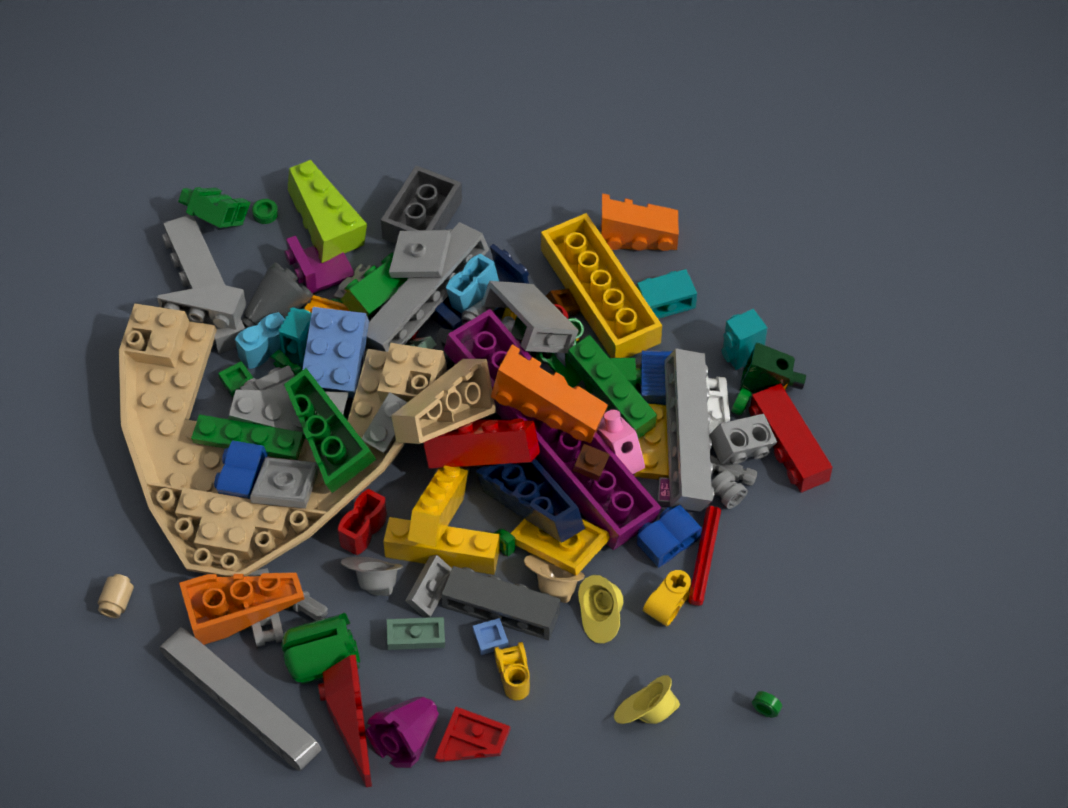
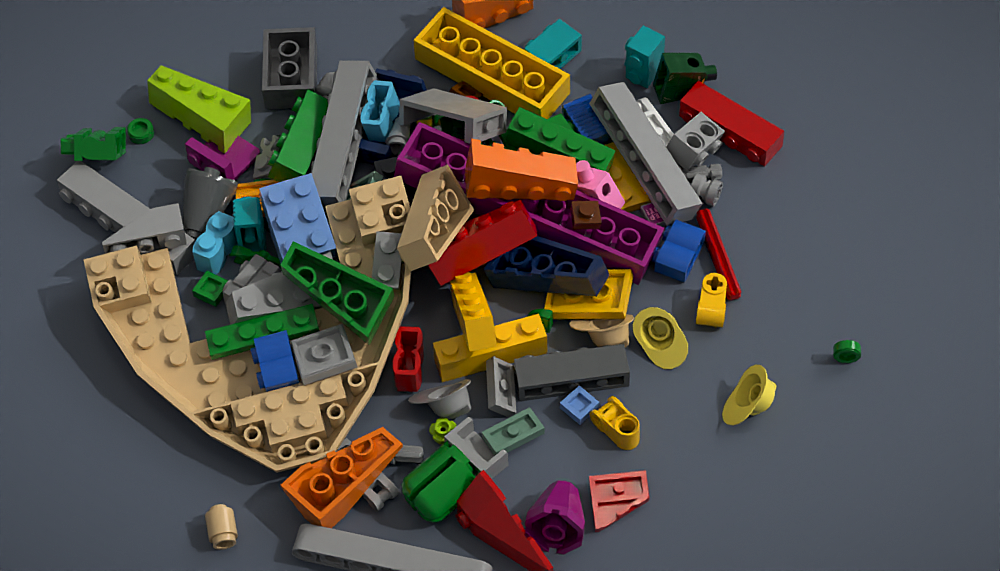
camera: 25 degrees left, 0 degrees up
(360, 608) = (435, 429): none -> lime plate
(371, 634) = (476, 450): none -> light grey panel
(420, 254) = (321, 103): light grey plate -> none
(741, 402) = (671, 111): green tile -> none

